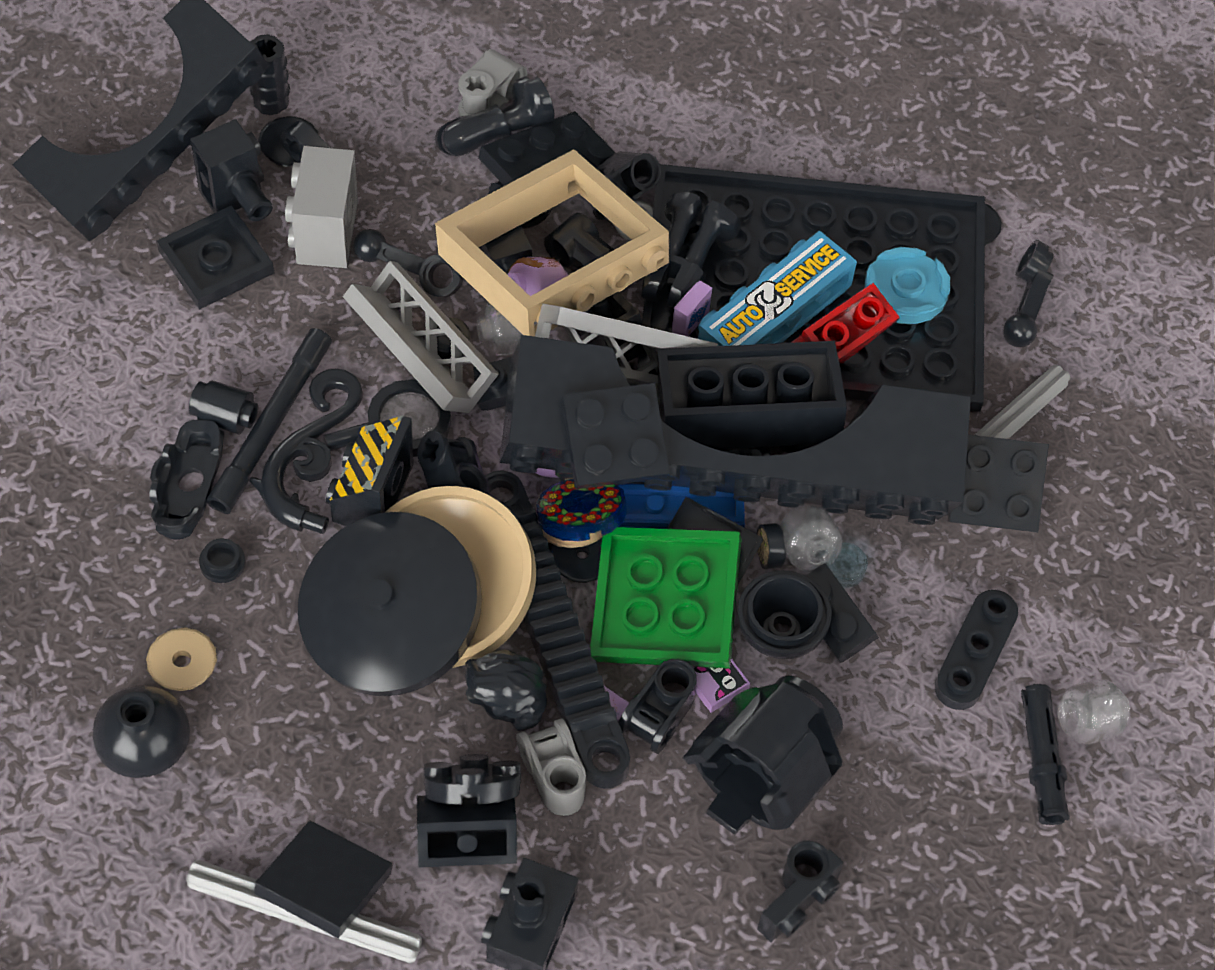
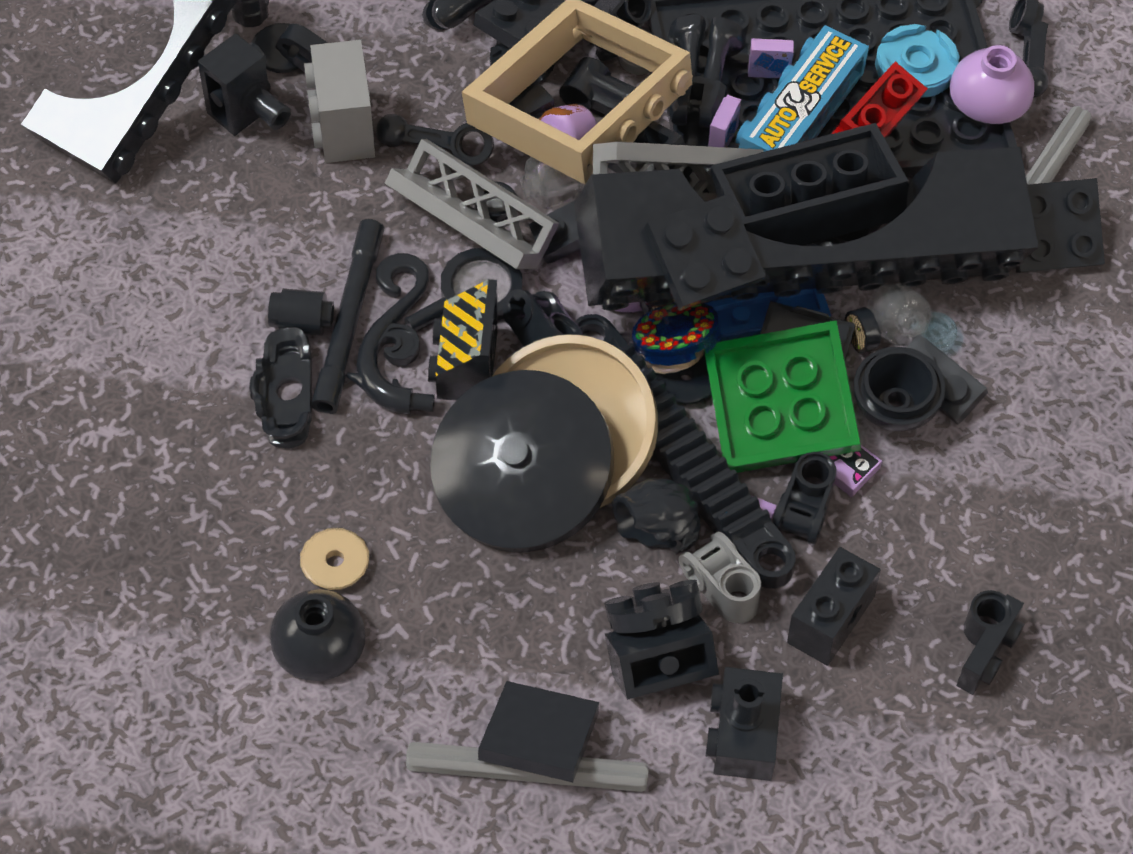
camera: 10 degrees left, 0 degrees up
(215, 257) = (246, 172): black plate -> none
(222, 561) = (344, 458): black plate -> none
(653, 820) = (833, 606): none -> black brick
(757, 250) = (769, 57): none -> lavender tile
(768, 754) = (925, 520): black piece -> none
(971, 663) = (1078, 396): black plate -> none
(974, 327) = (992, 85): none -> lavender piece

